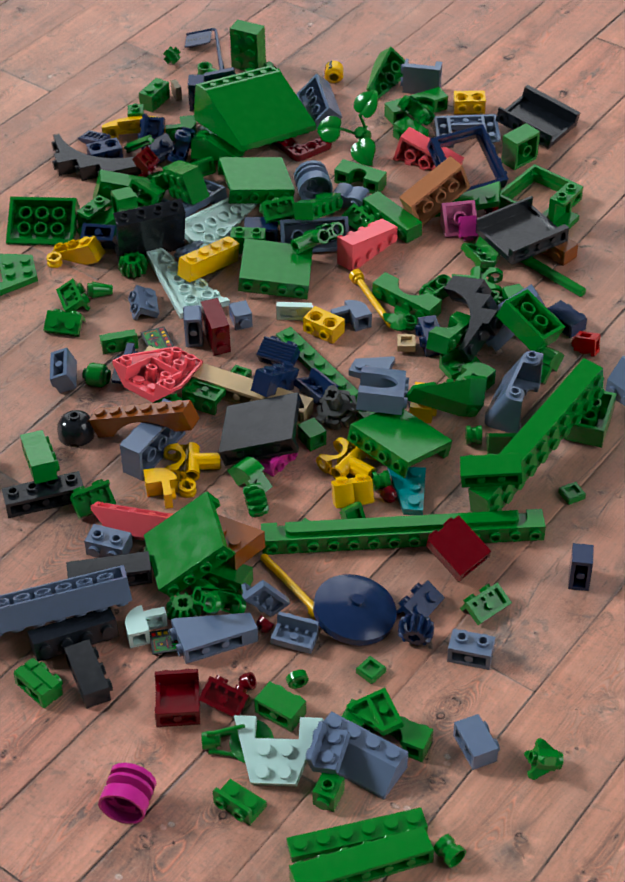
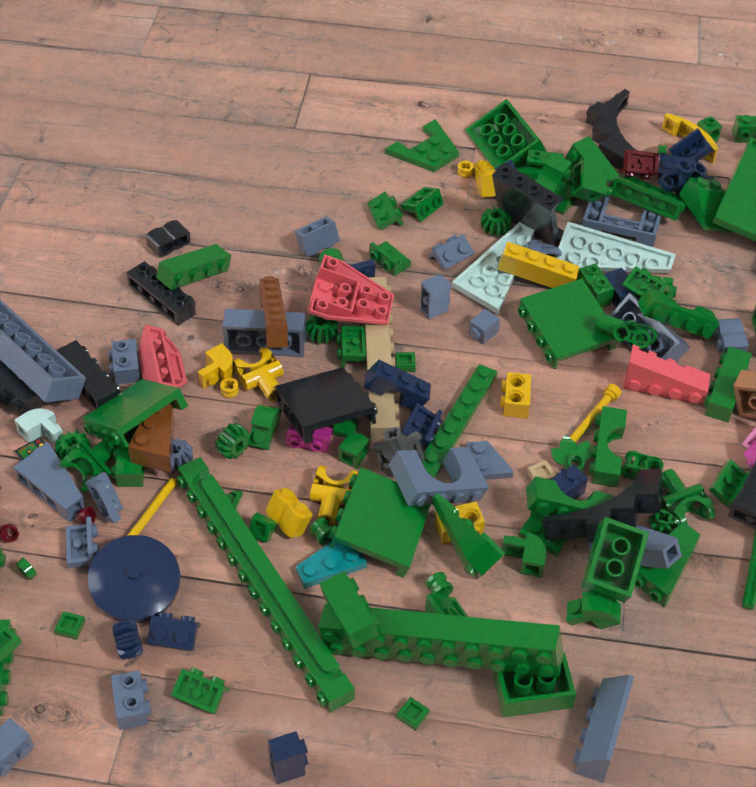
camera: 60 degrees right, 5 degrees up
(75, 428) = (250, 274): black cylinder -> none
(83, 497) = (176, 327): green bracket -> none
(92, 136) = (653, 122): dark blue slope -> none
(97, 289) = (445, 214): green cone -> none
(105, 149) = (639, 134): dark blue brick -> none
(157, 338) = (408, 283): piece -> none
(185, 121) = (720, 171): green brick -> none
(185, 182) = (624, 201): green brick -> none
(215, 326) = (445, 312): dark red brick -> none
(255, 179) = (685, 251): green panel -> none
(275, 351) = (447, 375): dark blue brick -> none
(292, 310) = (524, 363): light aqua panel -> none
(312, 179) = (720, 294): sand blue wheel -> none
(355, 313) = (550, 412): sand blue brick -> none
(358, 217) = (704, 357): green bracket -> none
(389, 494) = (310, 546): dark red hinge -> none
(458, 548) = (252, 631): dark red brick -> none
(506, 405) = (549, 591): sand blue windscreen -> none
(569, 318) = (686, 603): dark blue brick -> none
(586, 342) = (658, 639): red brick -> none

